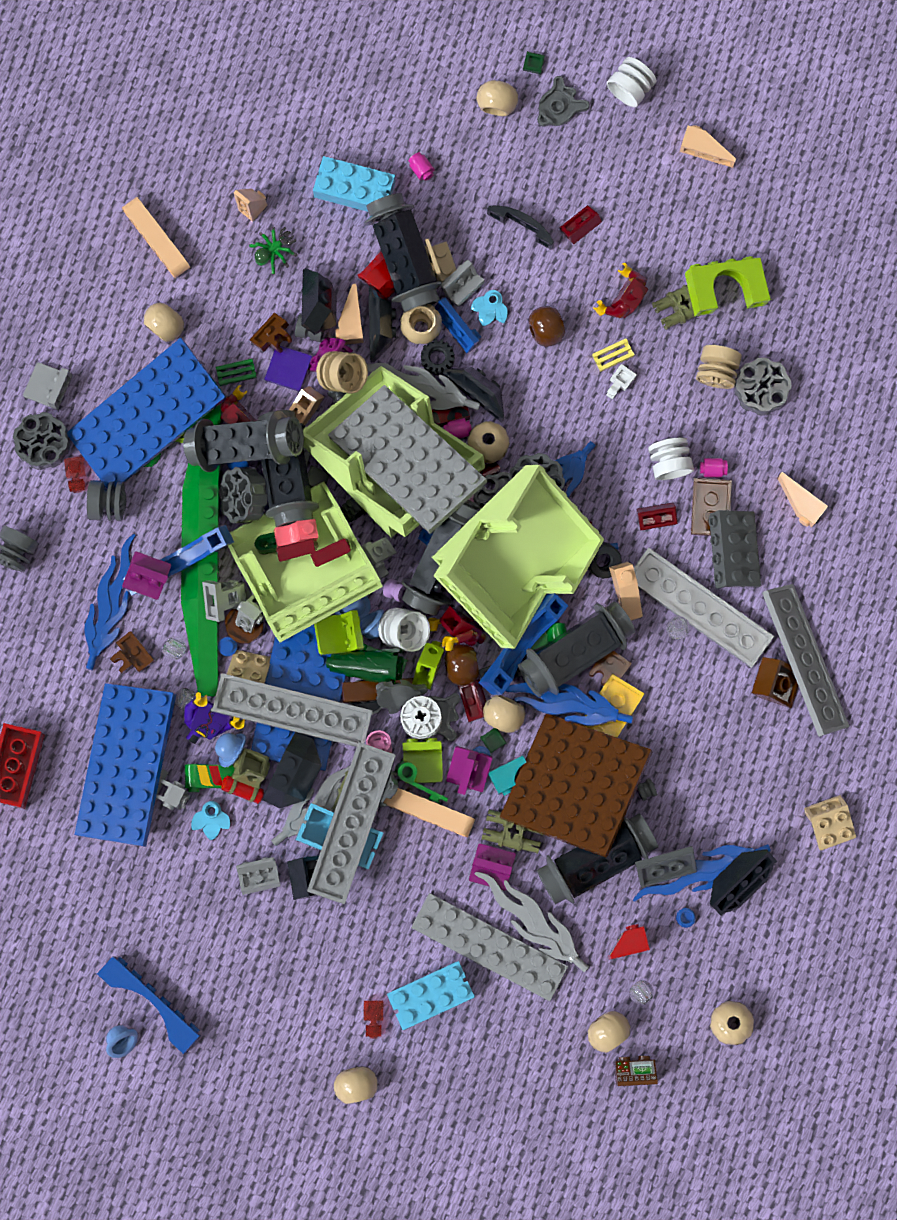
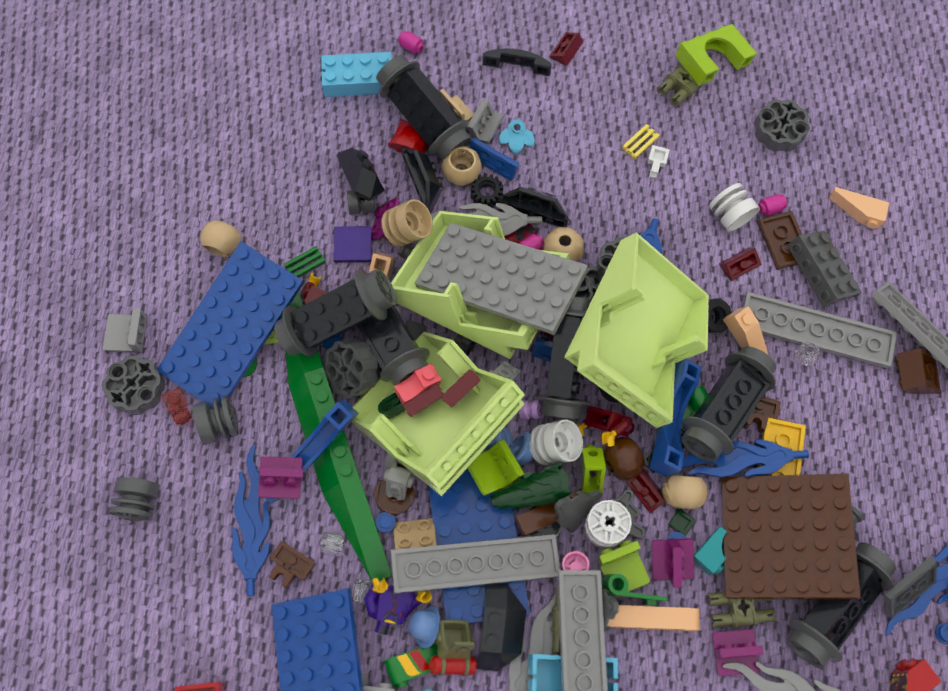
camera: 25 degrees left, 10 degrees down
(155, 237) = (190, 170): light nougat beam -> none
(226, 596) = (369, 471): light grey tile -> none
(250, 202) = (267, 113): light nougat slope -> none
(270, 250) = (301, 148): animal -> none
(272, 334) = (327, 218): reddish brown plate -> none
(350, 320) = (395, 182): light nougat slope -> none
(546, 326) = (574, 133): reddish brown piece -> none
(628, 297) = (635, 88): dark red torso -> none
(718, 366) = (739, 118): tan wheel -> none

